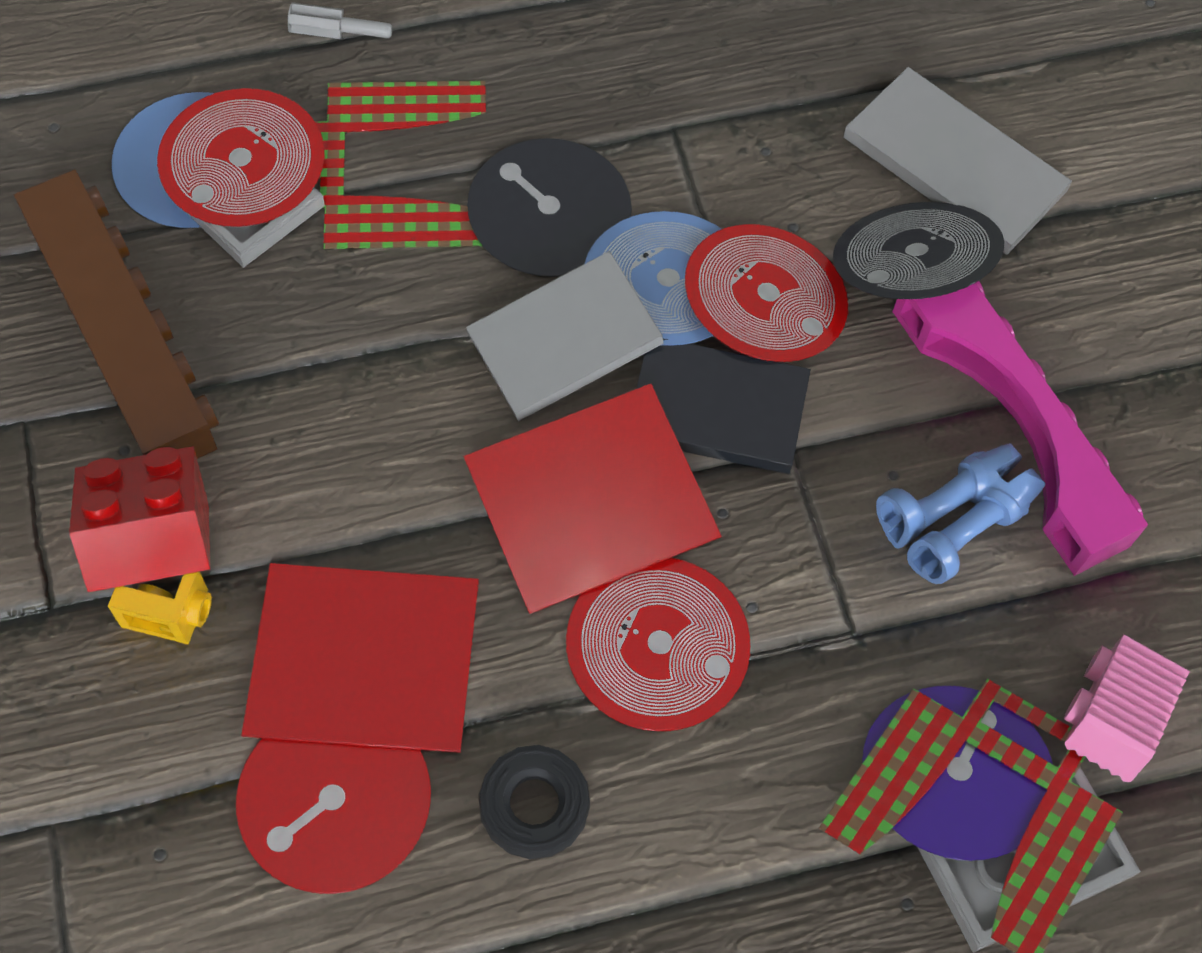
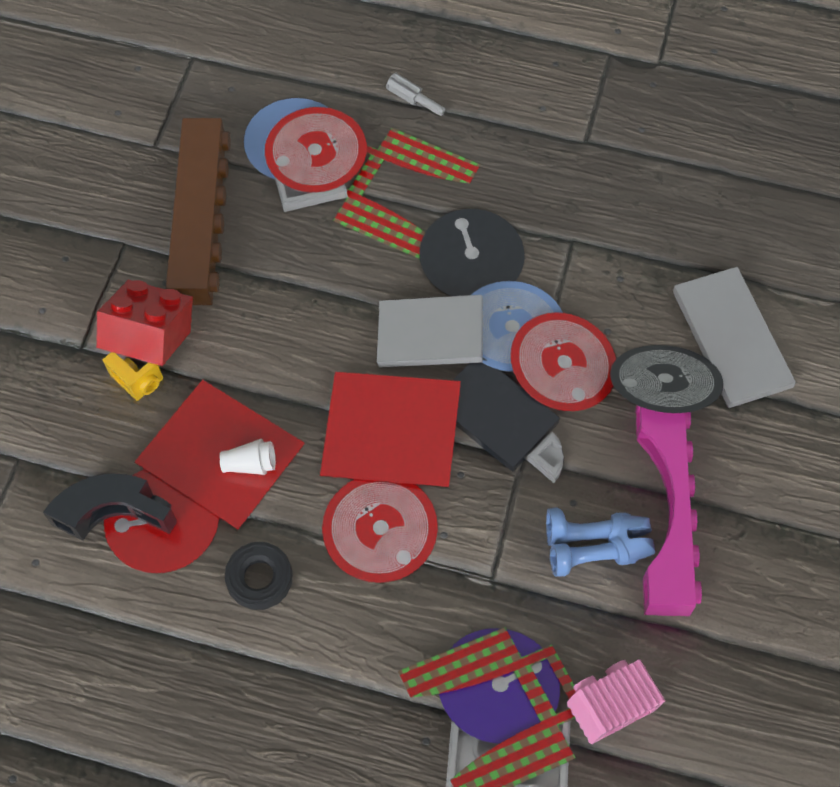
camera: 35 degrees right, 0 degrees up
(235, 807) = (105, 496): none -> black arch
(418, 640) = (250, 458): none -> white cone
(826, 430) = (548, 457): none -> light grey tile

